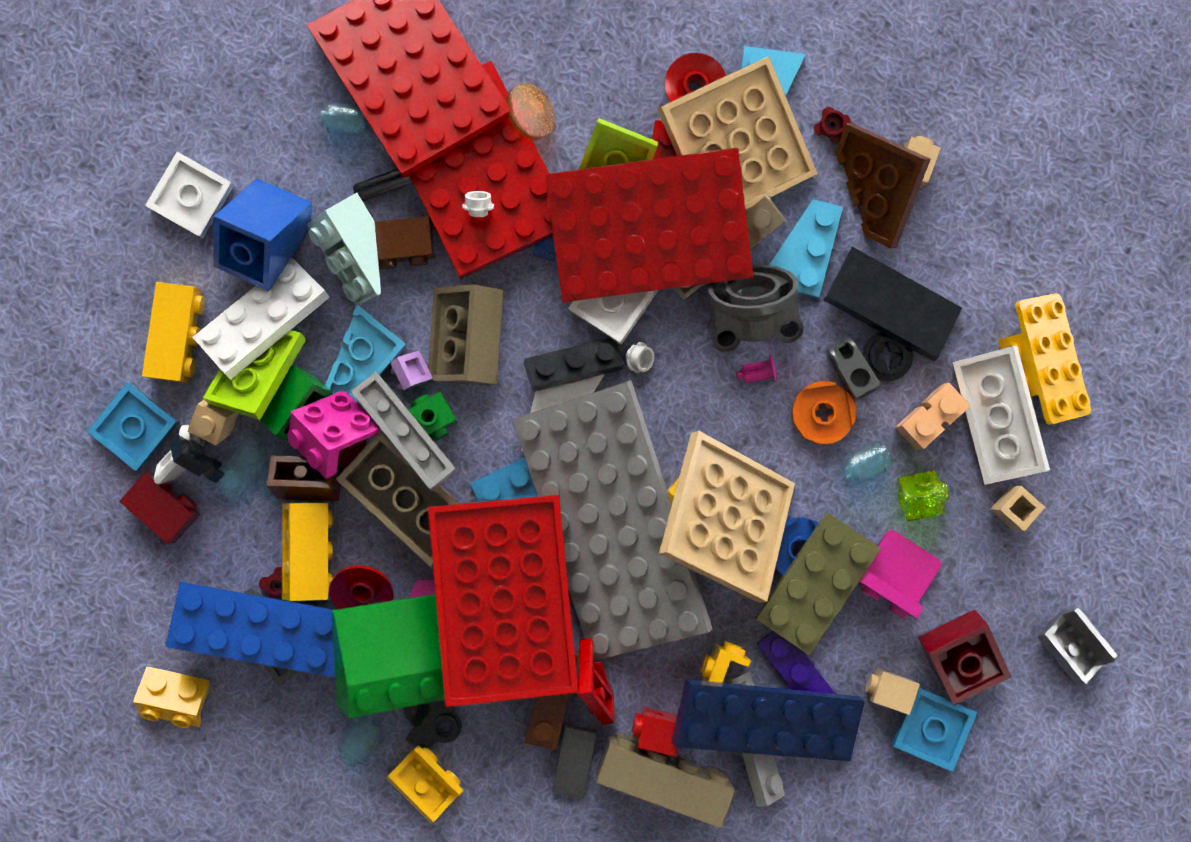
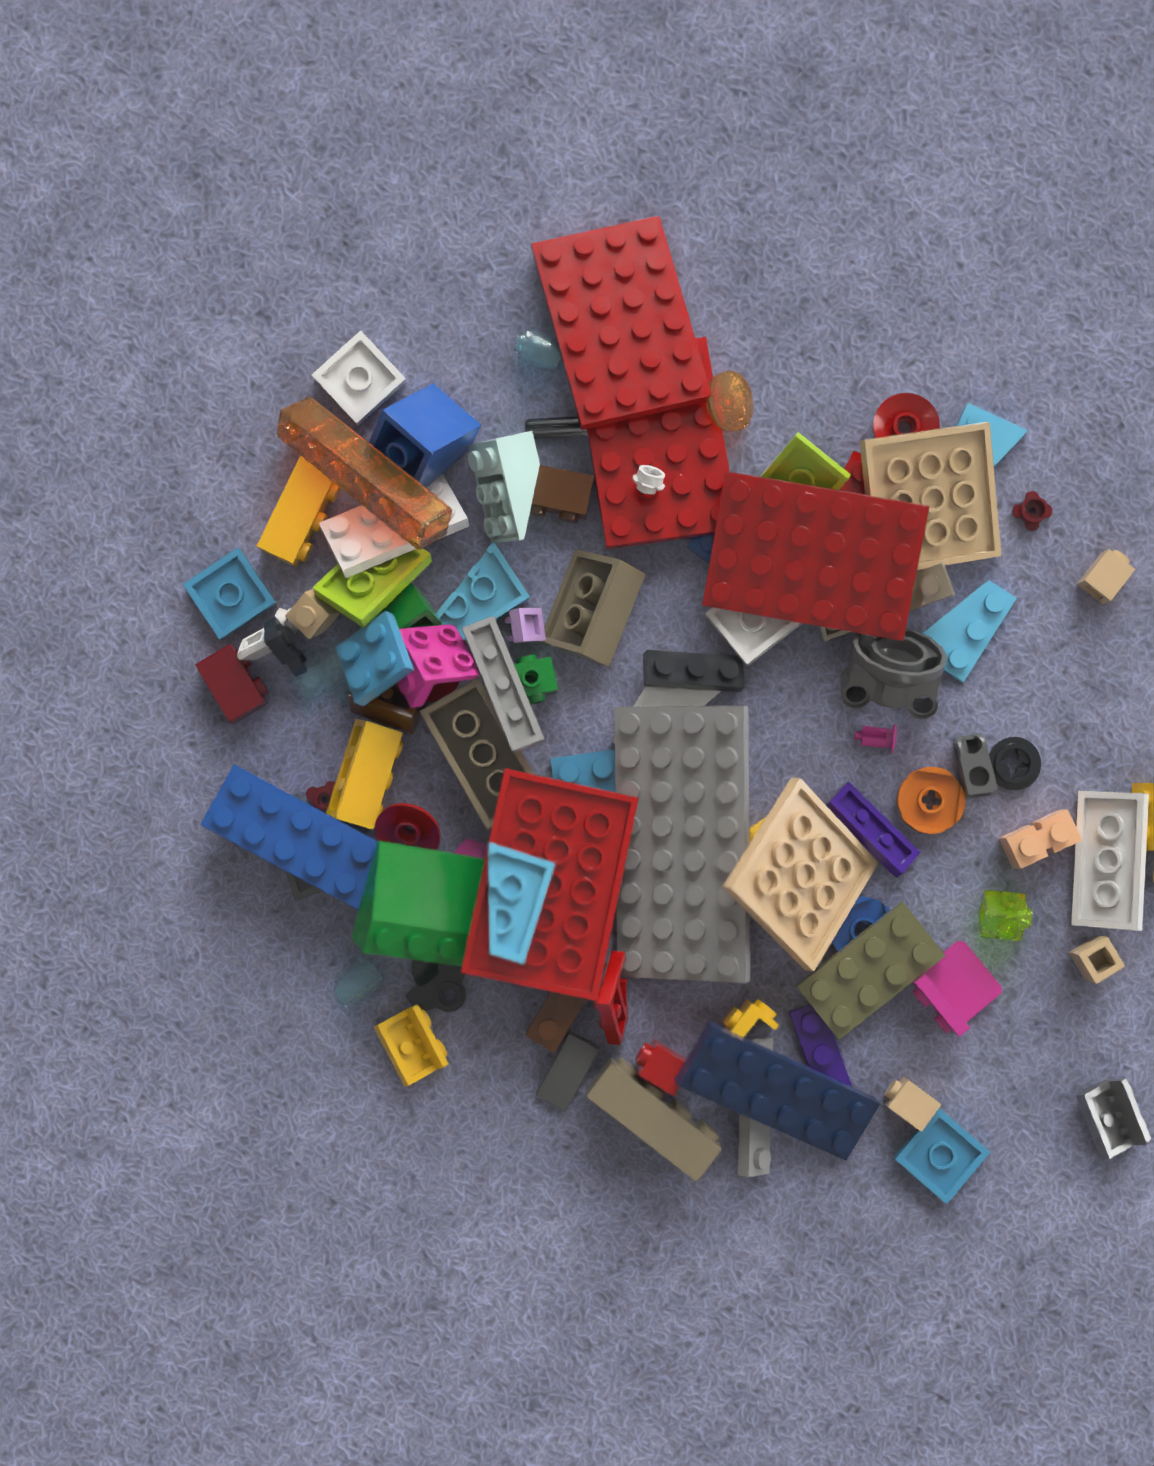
camera: 20 degrees right, 0 degrees up
(171, 697) = (183, 878): yellow bracket -> none
(217, 278) = (364, 472): none -> clear orange brick
(278, 444) = (374, 658): none -> dark azure plate
(474, 625) = (515, 899): none -> medium azure wing
(639, 357) = (761, 685): white plate -> none
(780, 455) = (872, 830): none -> dark purple plate
(866, 463) = (958, 865): clear light blue brick -> none
(884, 178) = (1068, 583): reddish brown plate -> none
(893, 304) = (1036, 712): black tile -> none
(964, 656) = (995, 1092): dark red slope -> none

